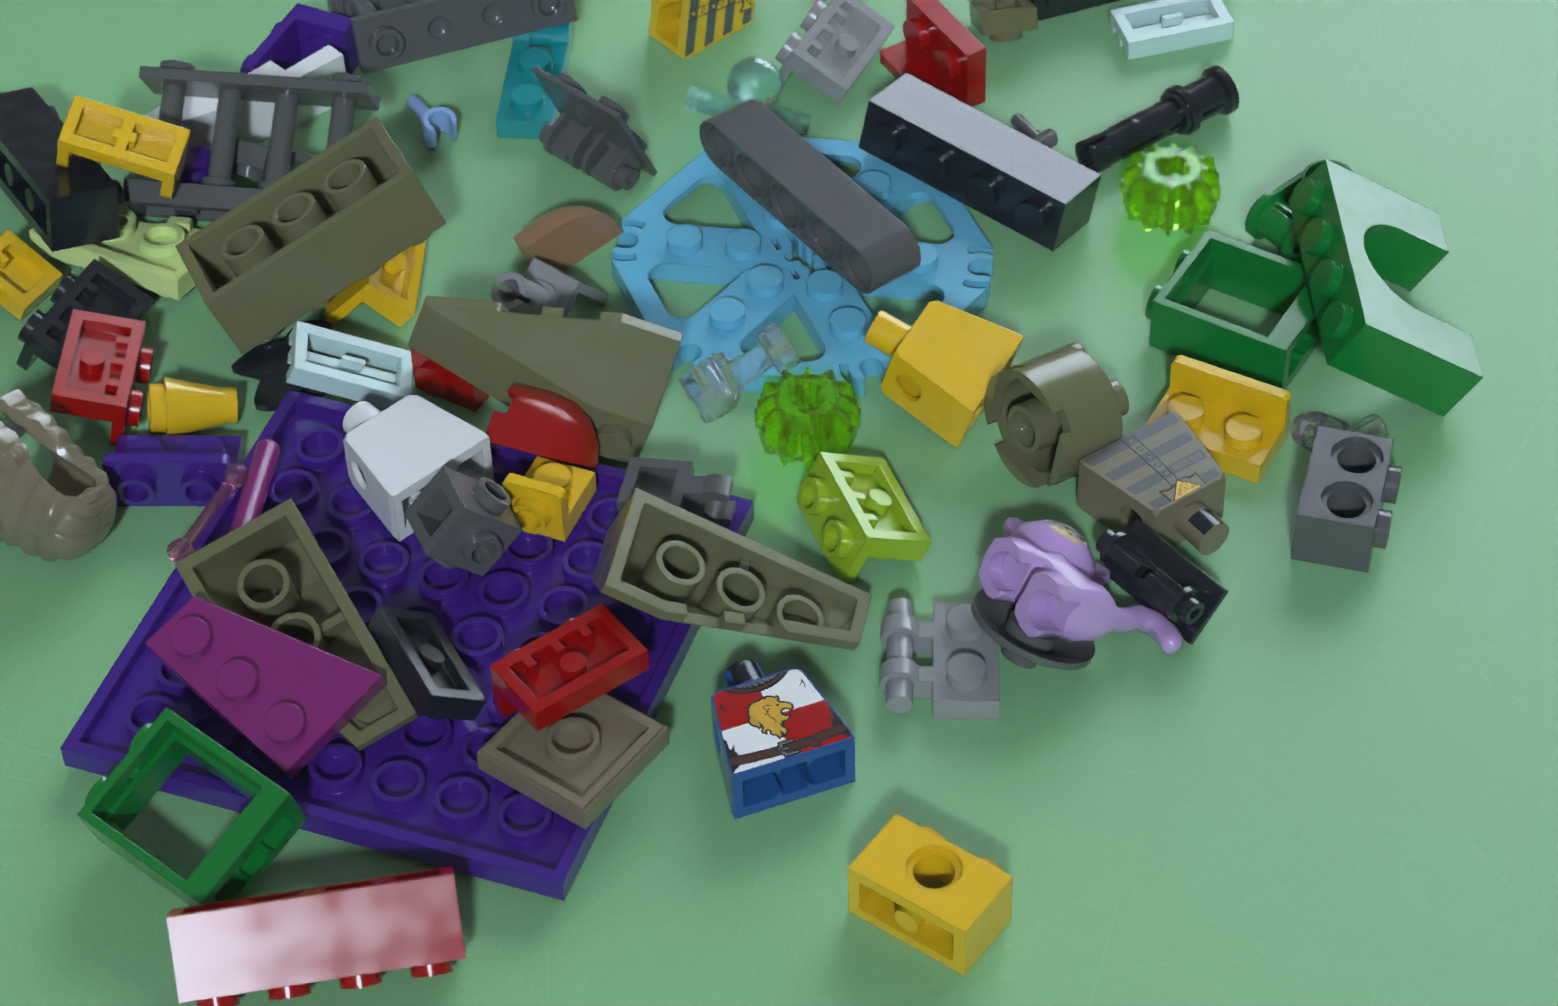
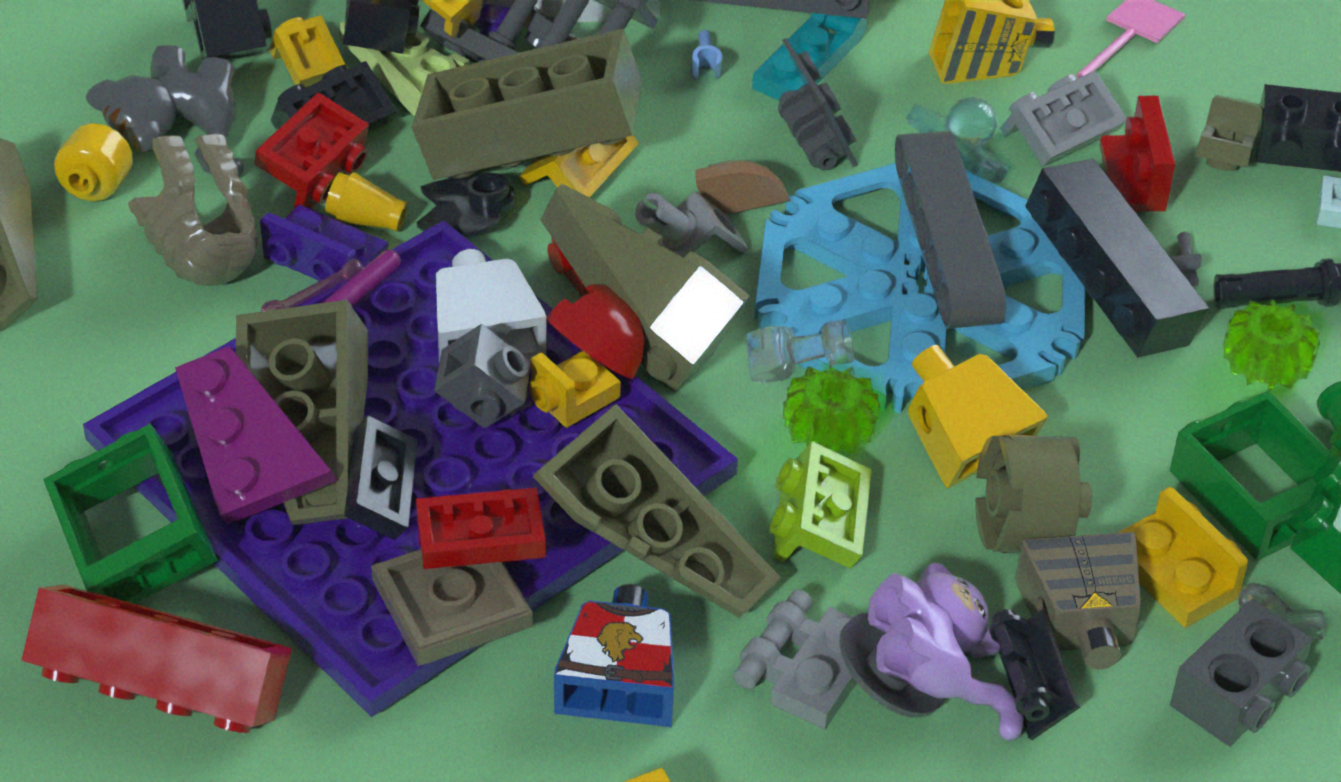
camera: 25 degrees right, 0 degrees up
(348, 376) = (495, 227): light aqua tile -> none
(678, 485) = (673, 420): dark grey plate -> none

